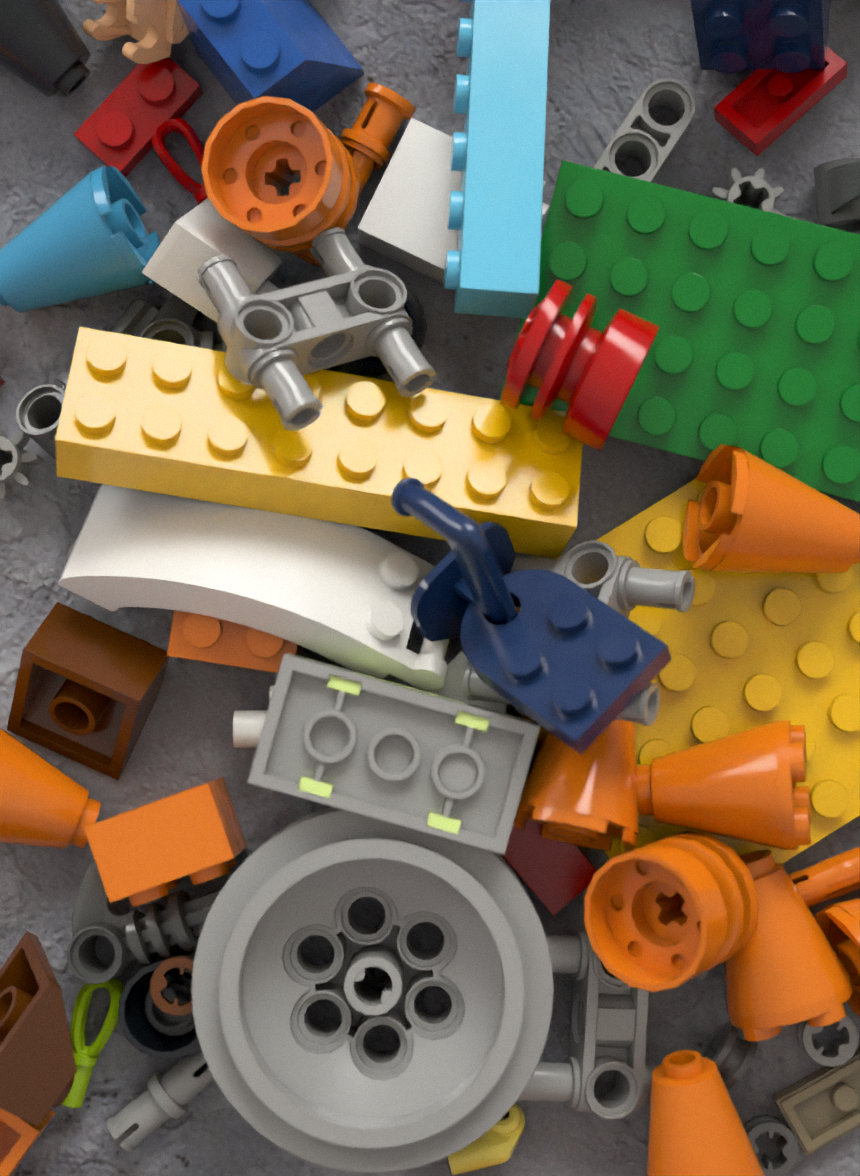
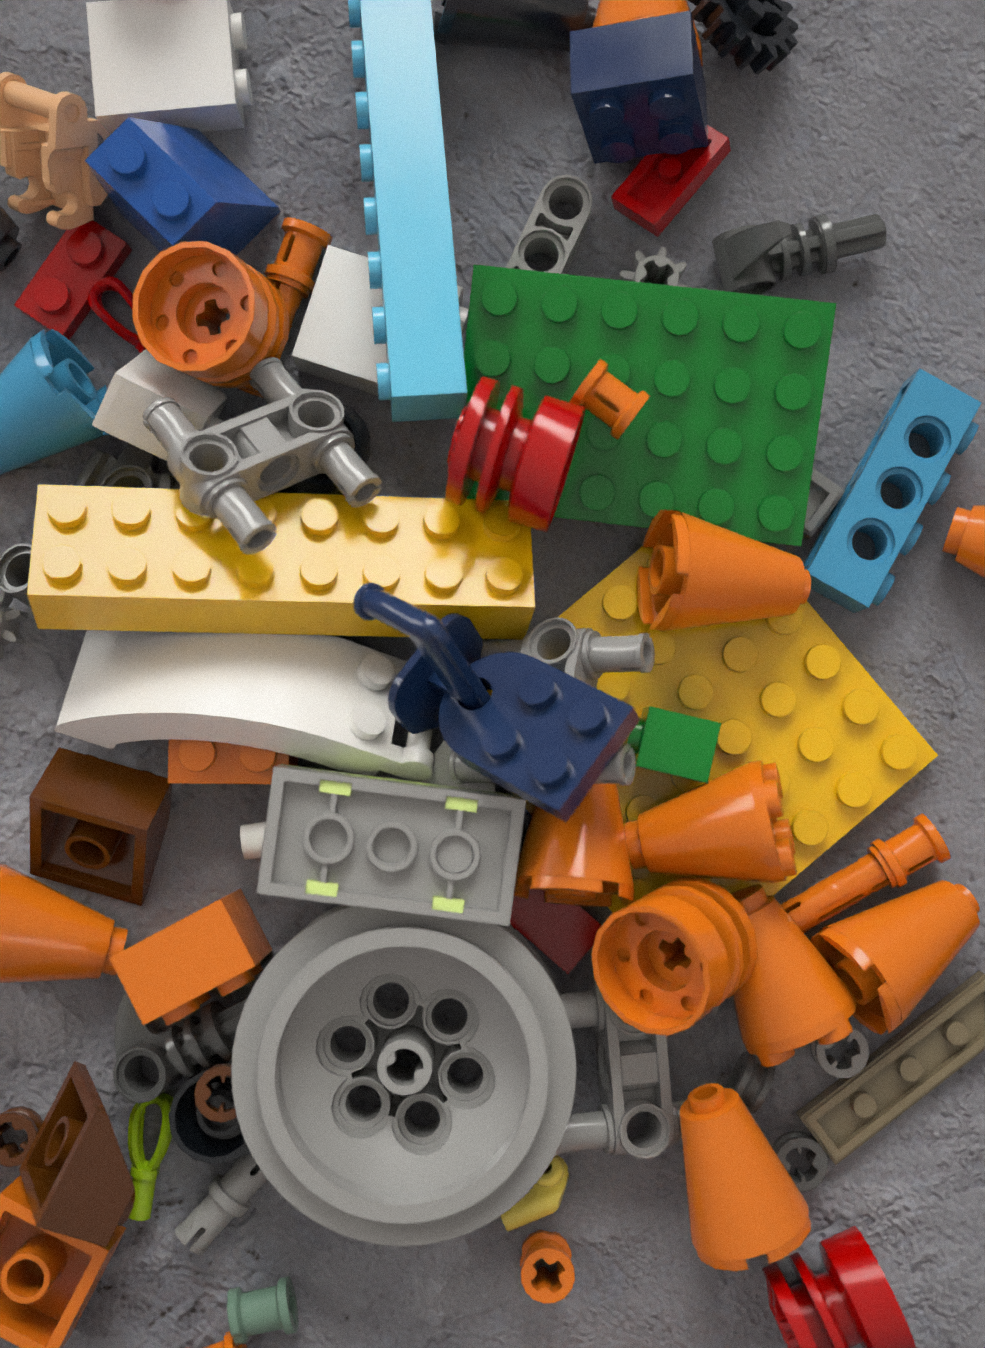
camera: 15 degrees left, 0 degrees up
(685, 321) = (609, 399): none -> orange bush
(702, 690) = (674, 743): none -> green brick

